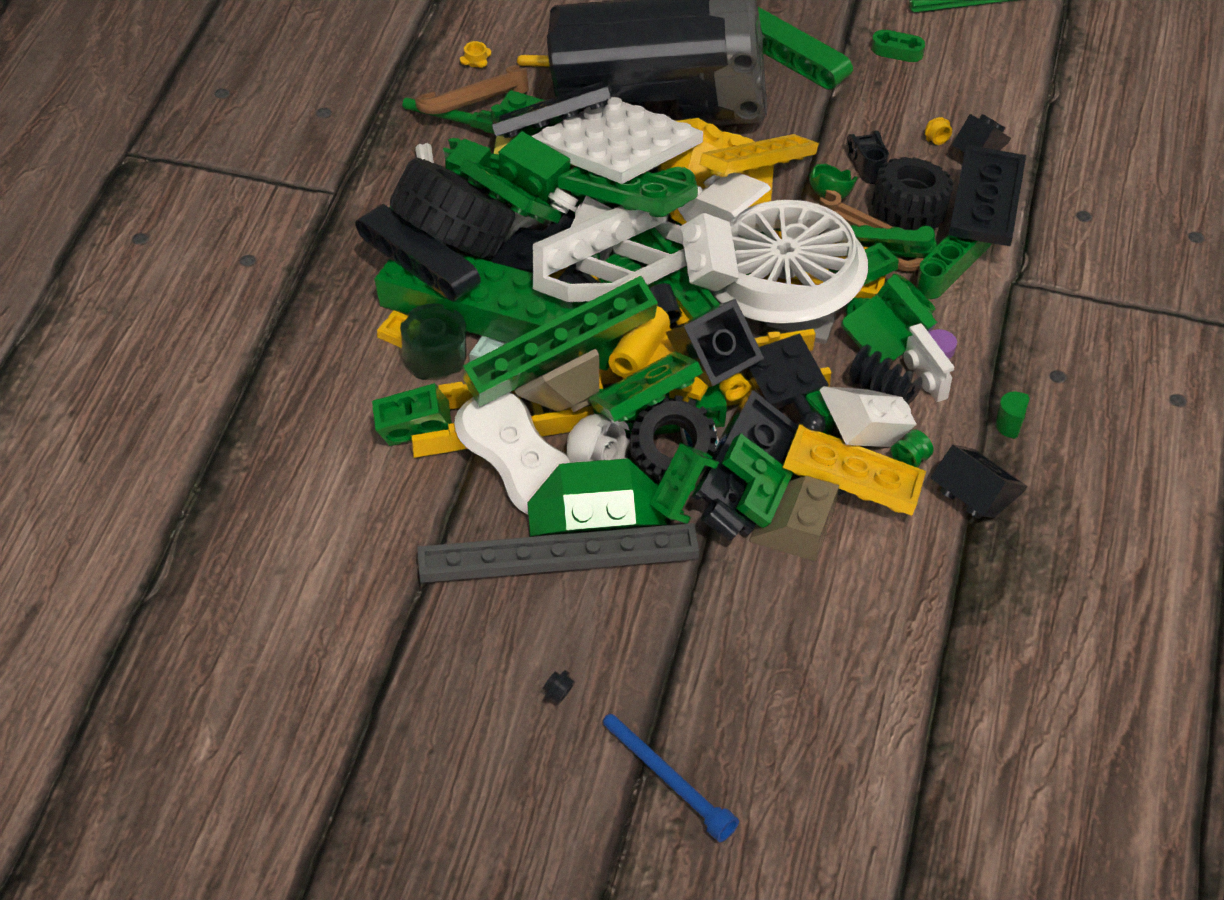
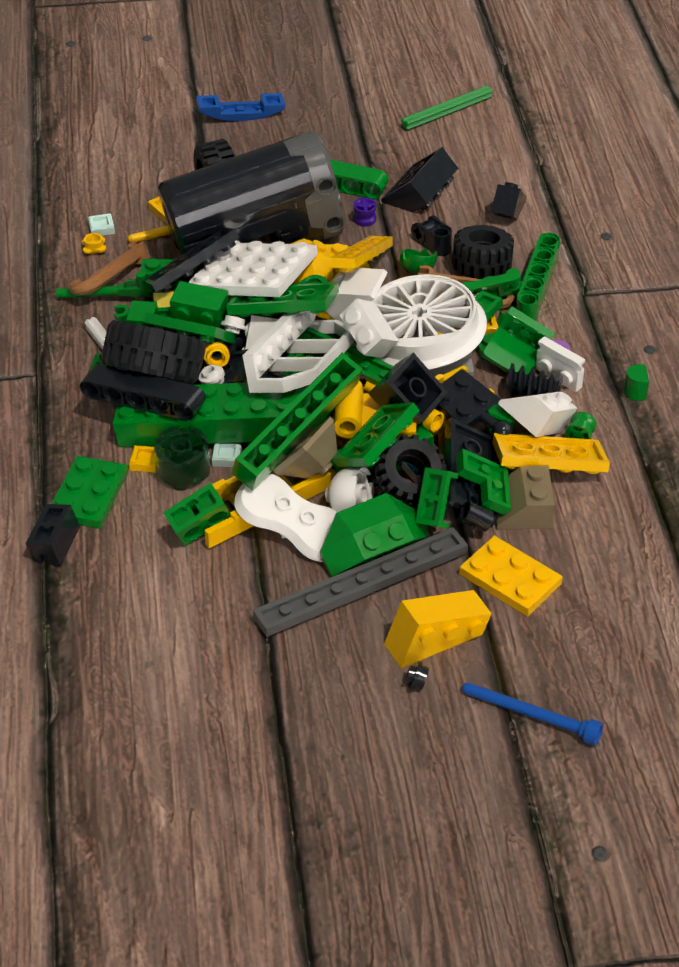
camera: 20 degrees left, 5 degrees down
(252, 386) = (53, 533): none -> black hinge
(318, 349) = (91, 489): none -> green plate
(496, 34) = (101, 224): none -> light aqua tile
(509, 254) = (212, 375): none -> white plate
(519, 237) = (222, 360): none -> yellow plate
(610, 634) = (434, 625): none -> yellow wedge
(733, 603) = (510, 575): none -> yellow plate
(803, 102) = (364, 212): none -> dark purple wheel
(891, 85) = (422, 182): none -> black slope
(898, 45) = (408, 154): green beam -> none
(938, 130) = (473, 205): yellow plate -> none
(976, 481) = (639, 436): black slope -> none
(987, 195) = (541, 236): black plate -> none

